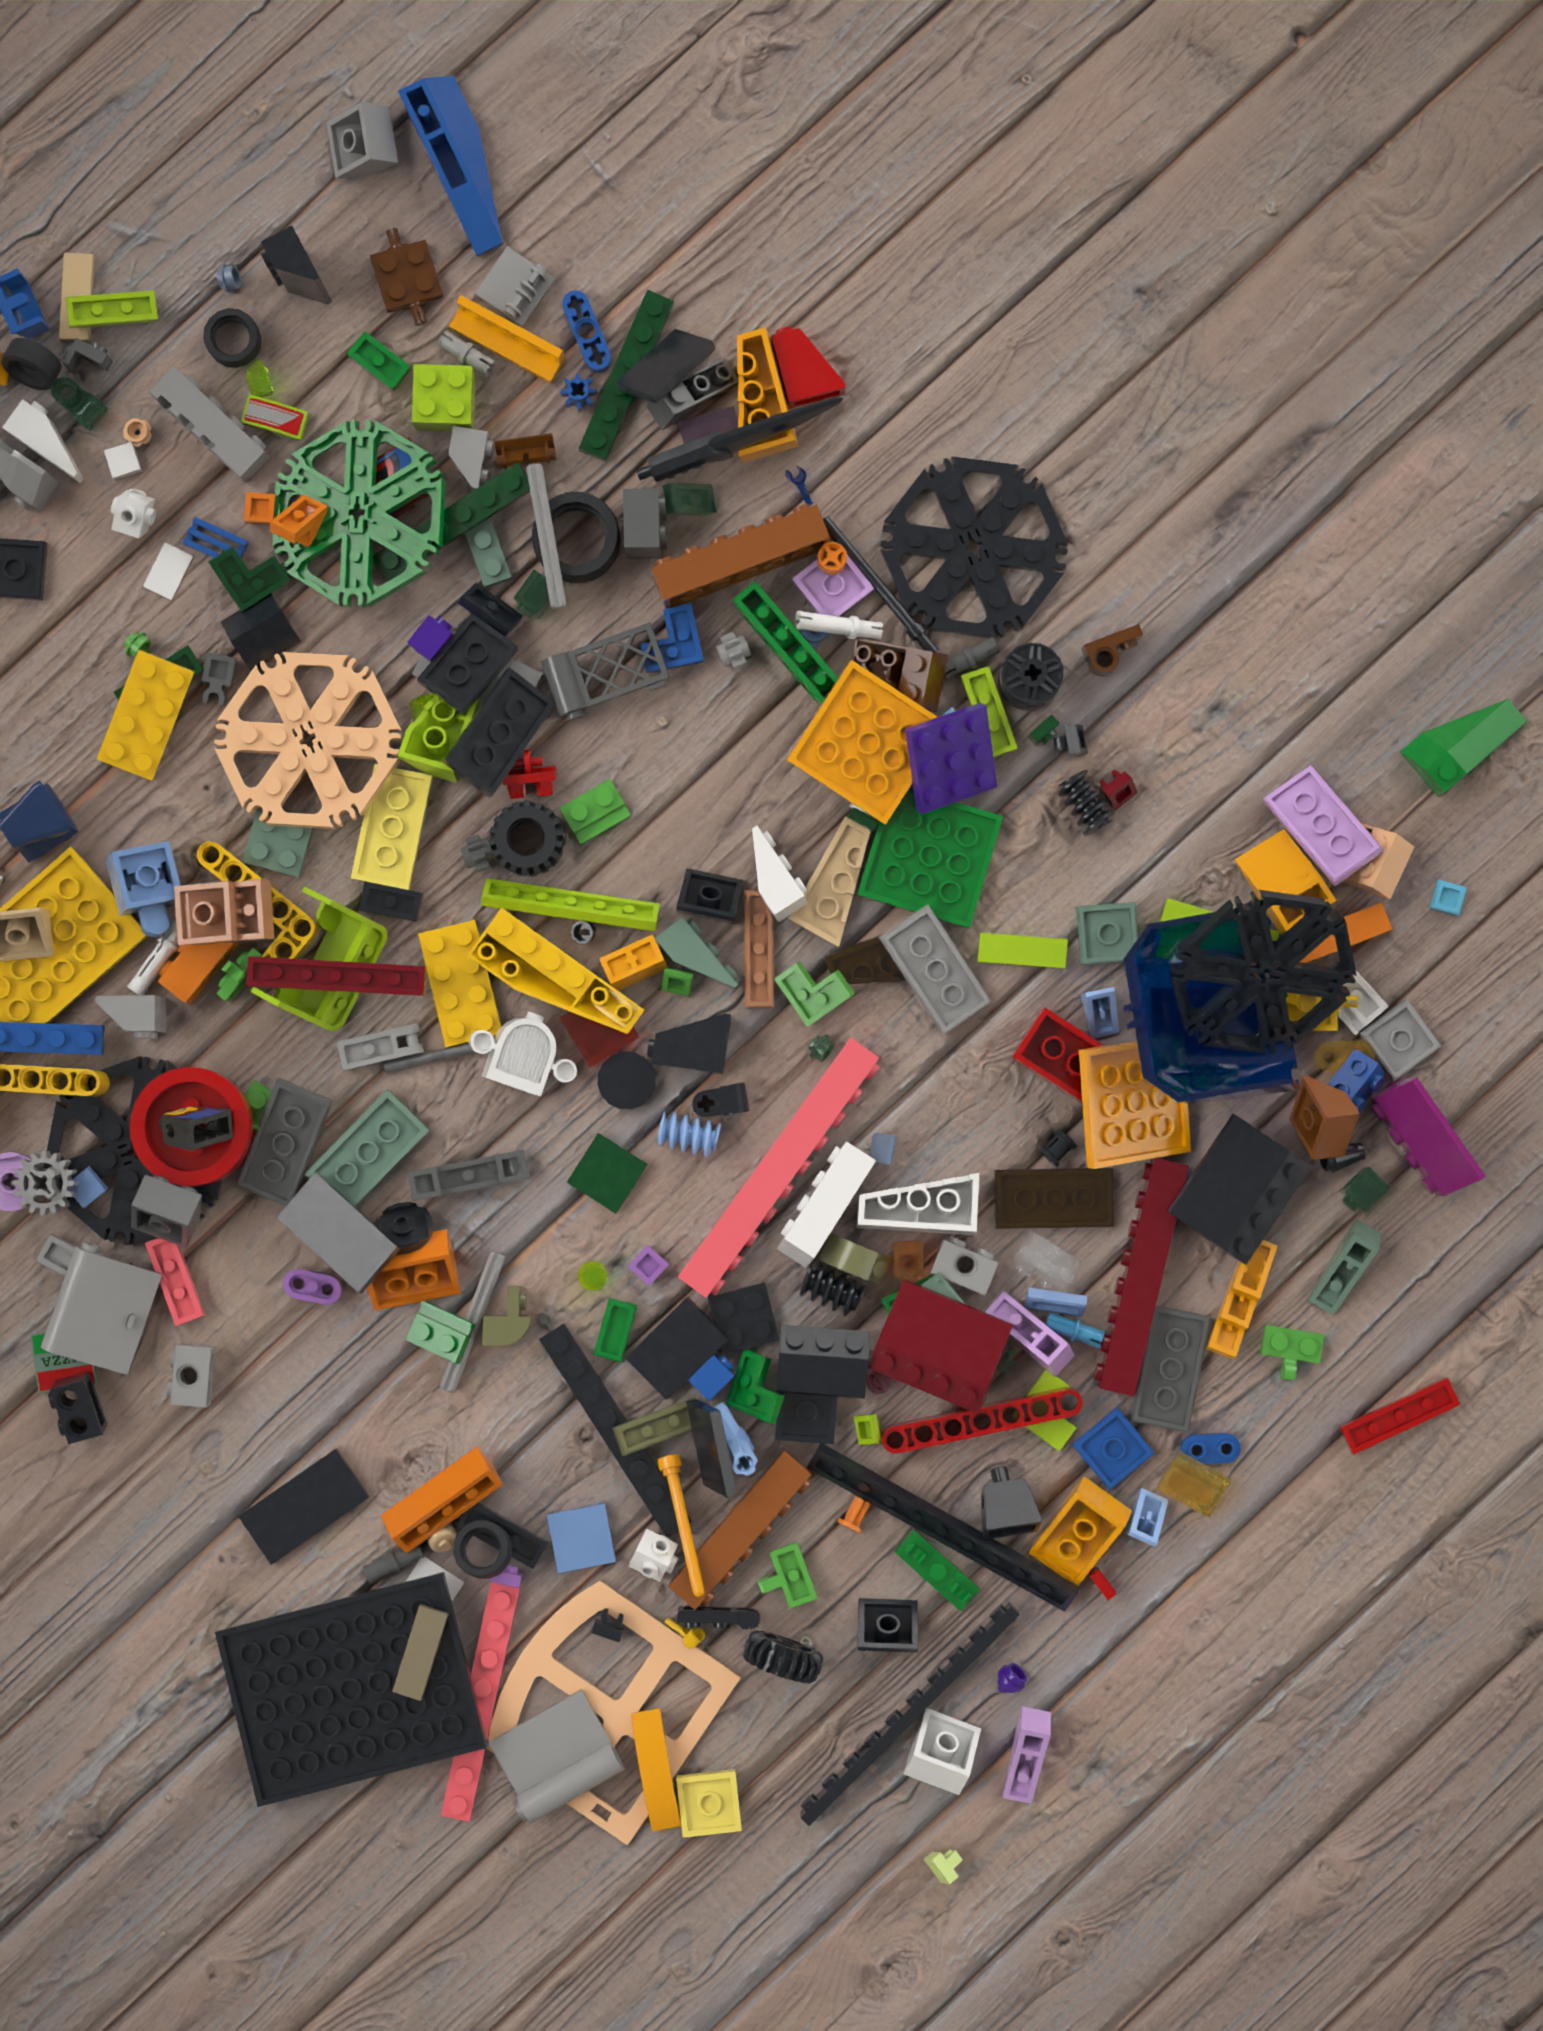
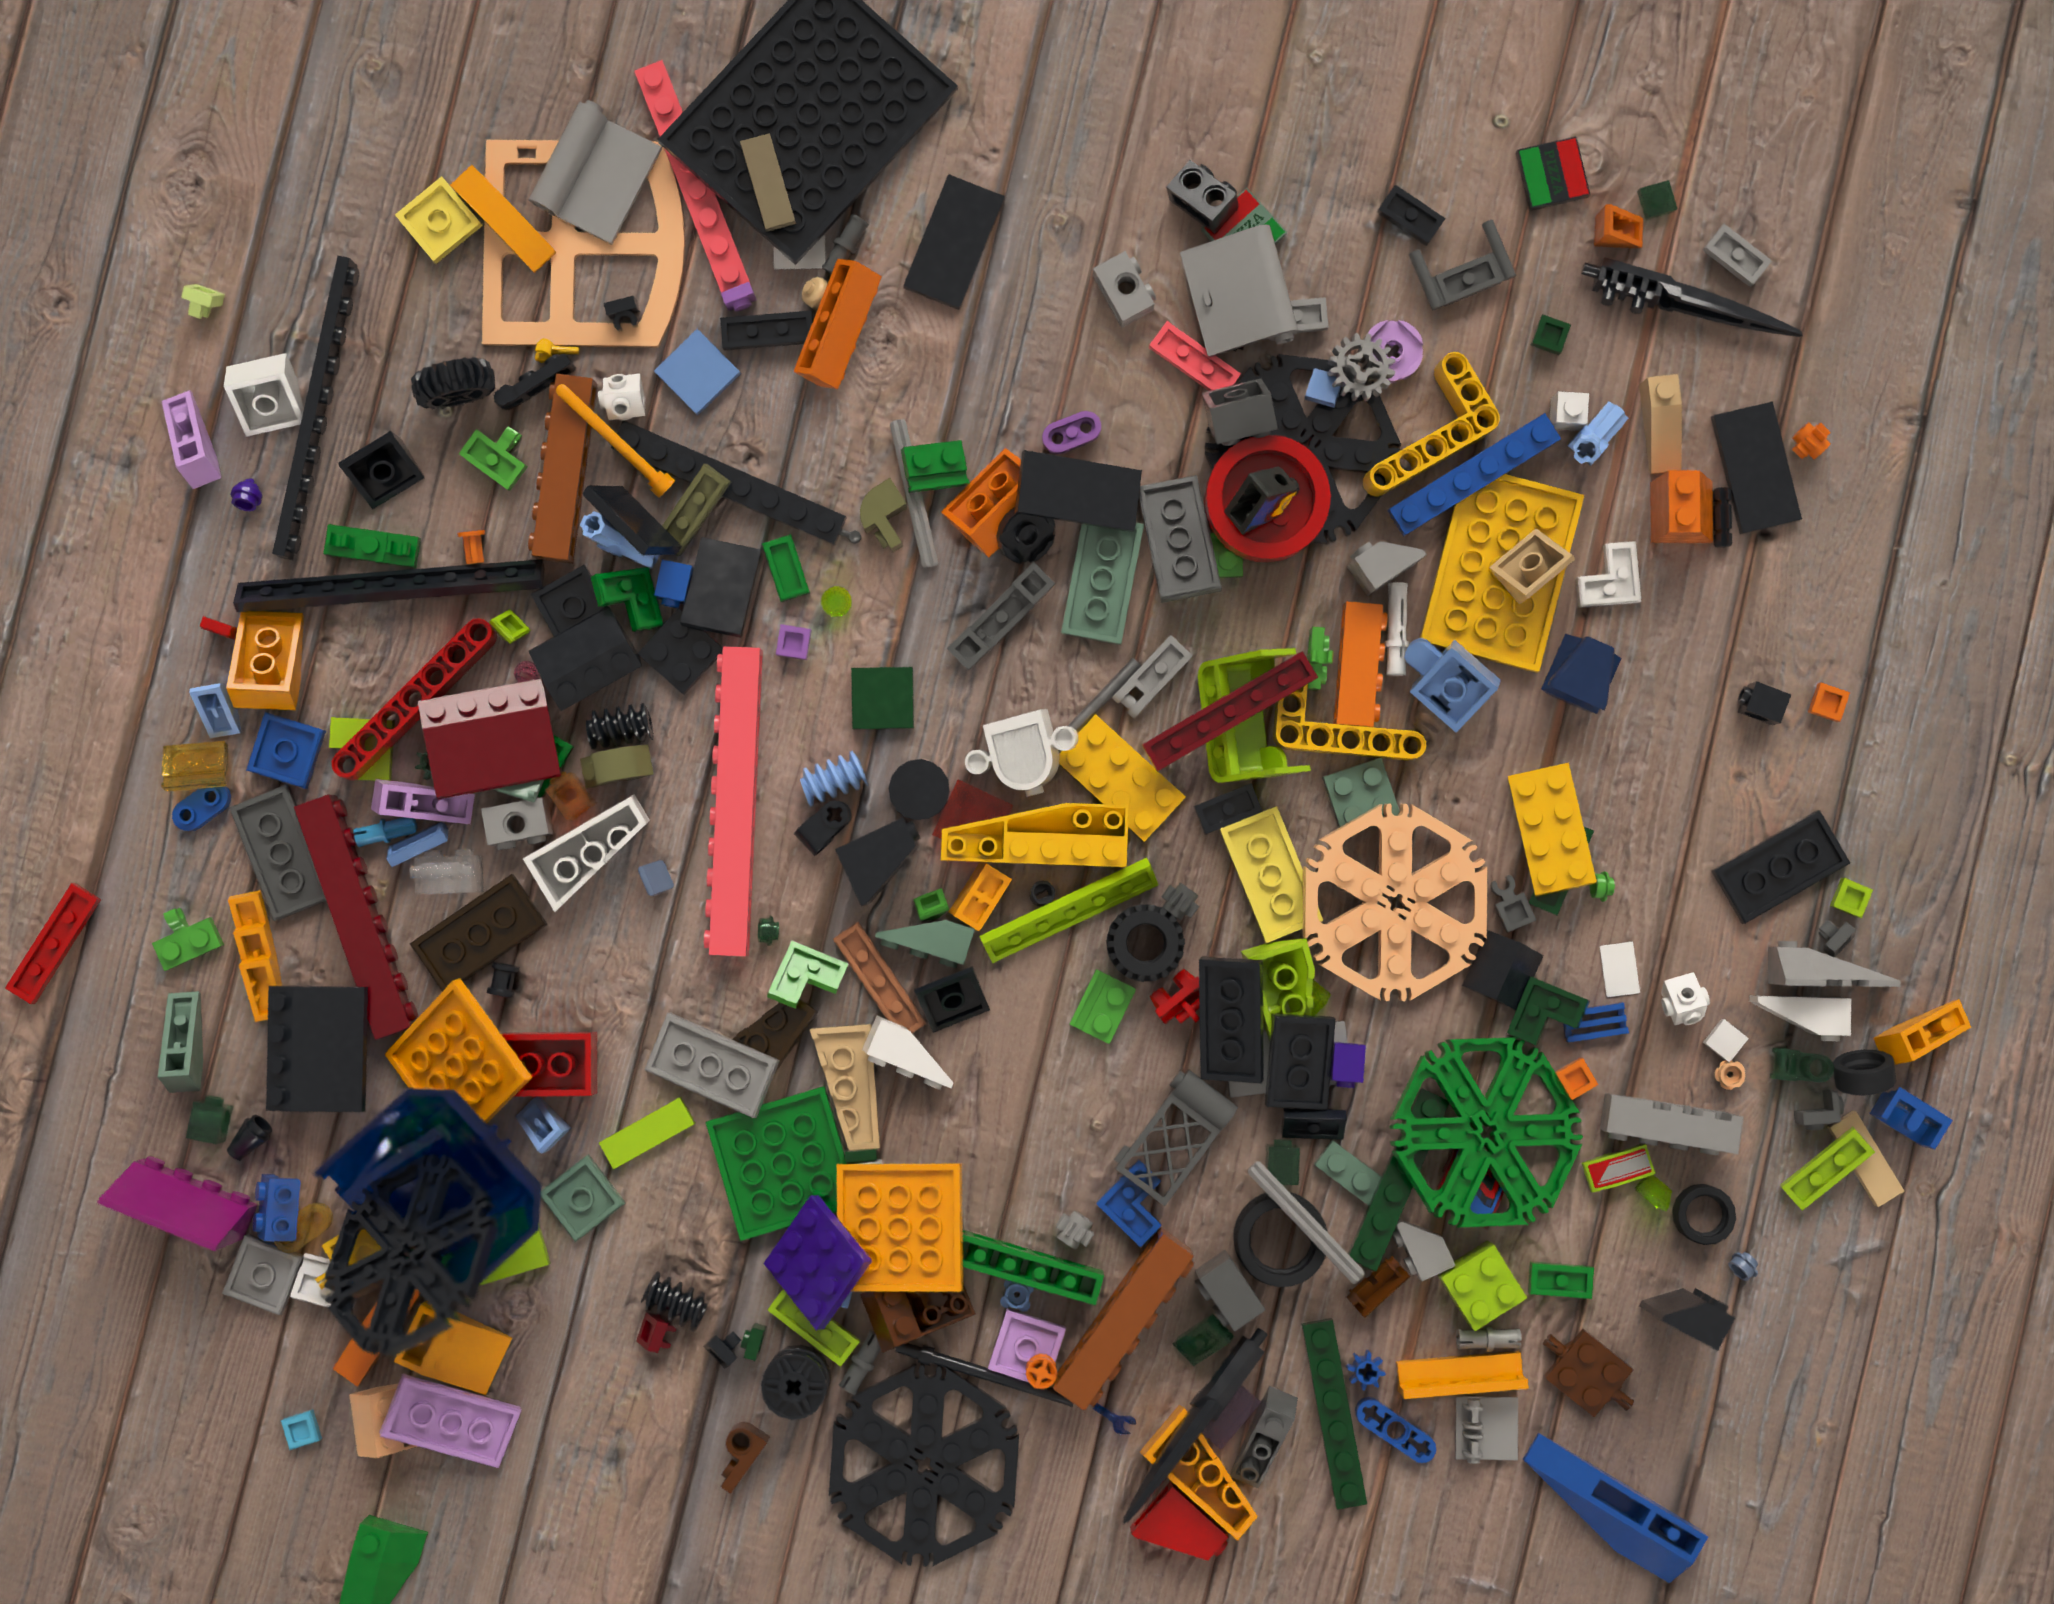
camera: 145 degrees right, 0 degrees up
(224, 912) = (1365, 701): nougat slope -> none
(300, 520) = (1533, 1090): orange slope -> none
(362, 141) = (1710, 1469): light grey slope -> none
(462, 1539) = (795, 300): black tyre -> none
(665, 366) = (1303, 1446): black tile -> none
(826, 1204) = (673, 796): white wedge -> none
(851, 626) = (986, 1319): white pin -> none
(1007, 1506) = (343, 639): torso -> none
(1323, 1119) = (281, 1159): dark orange slope -> none

